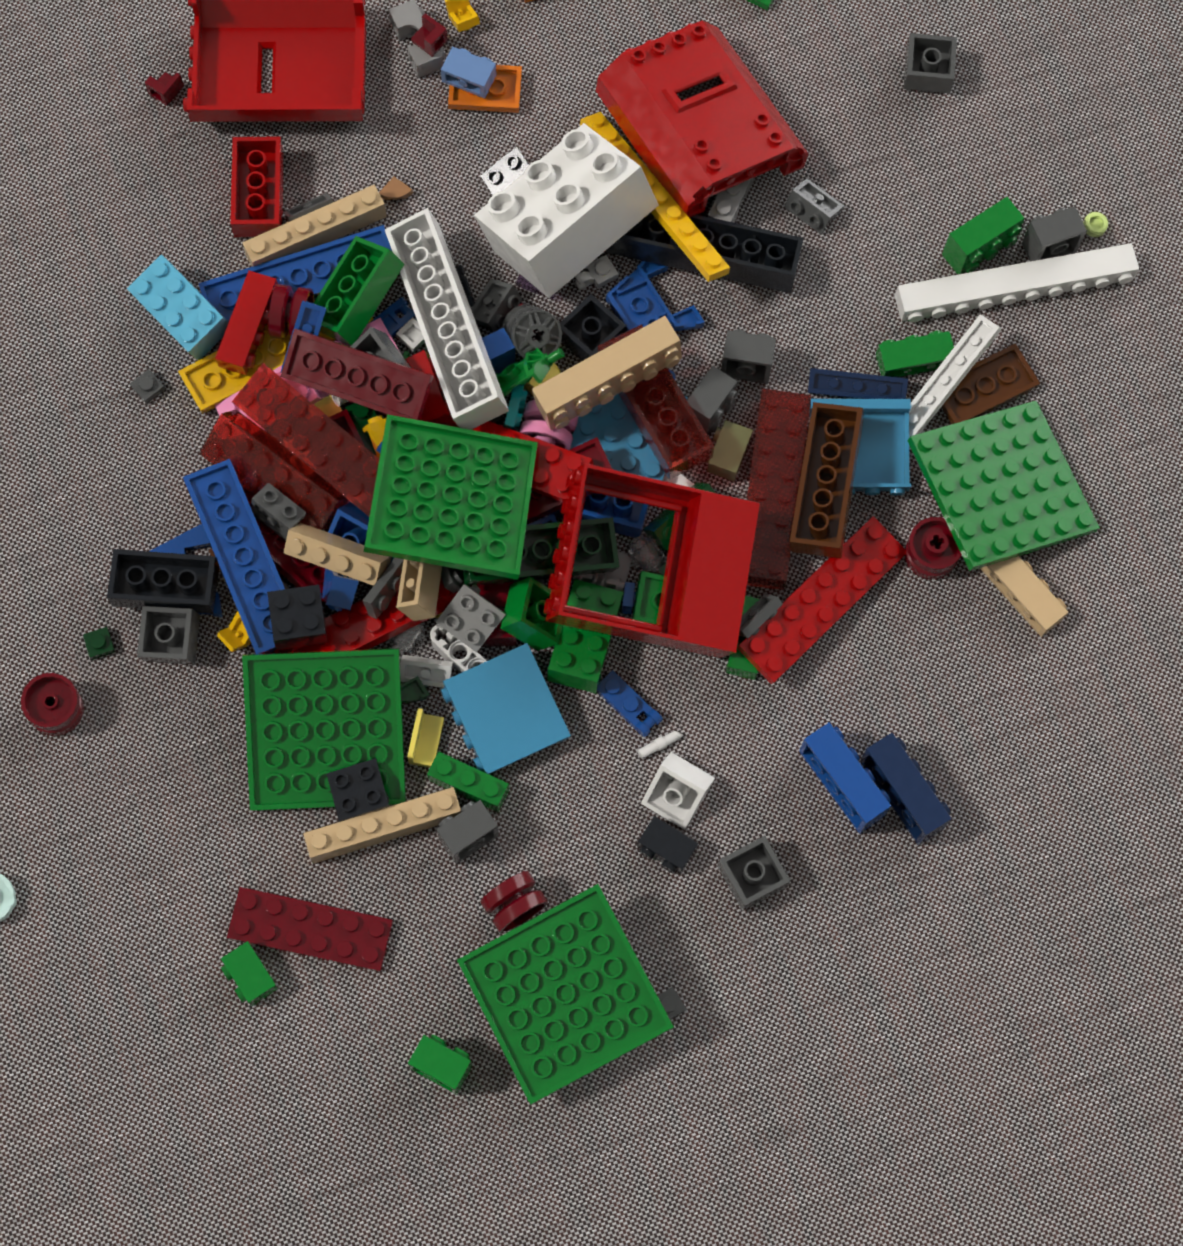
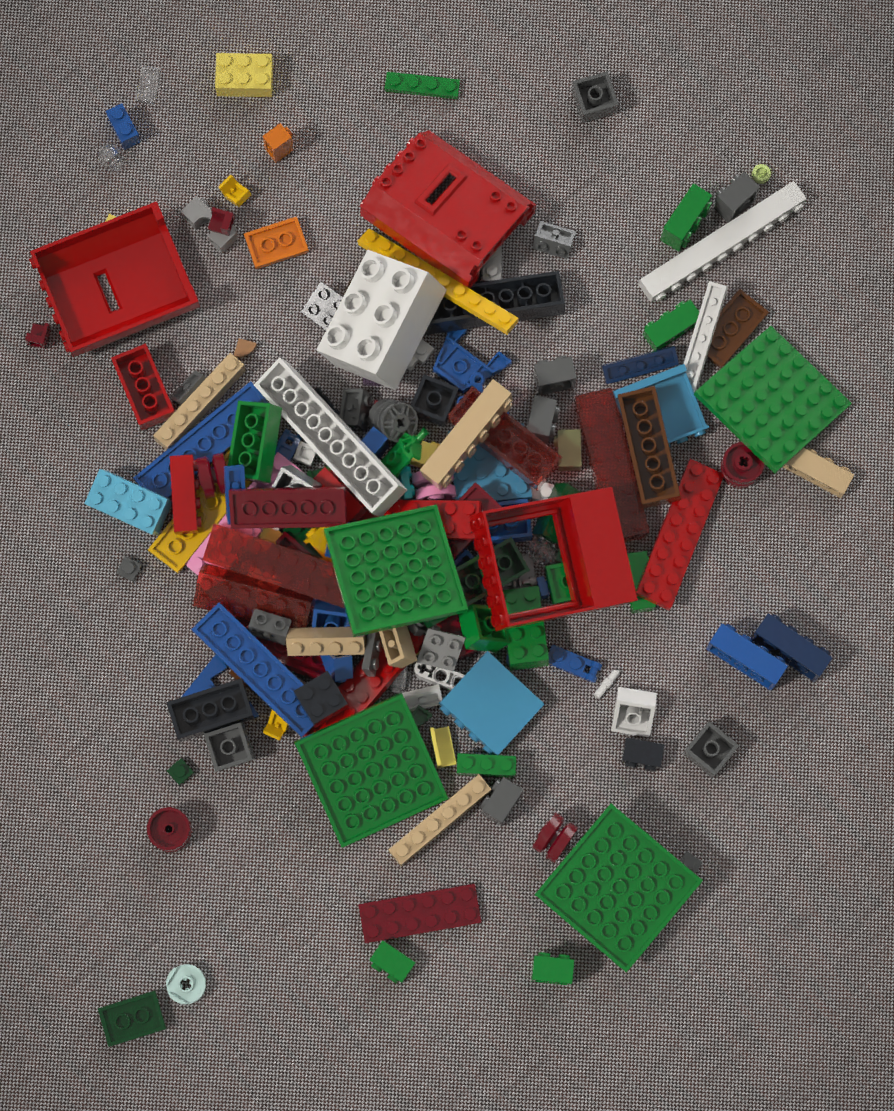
camera: 20 degrees left, 5 degrees up
(357, 789) = (413, 803): black hinge -> none
(468, 72) = (261, 237): medium blue brick -> none
(762, 610) = (640, 564): dark grey plate -> none

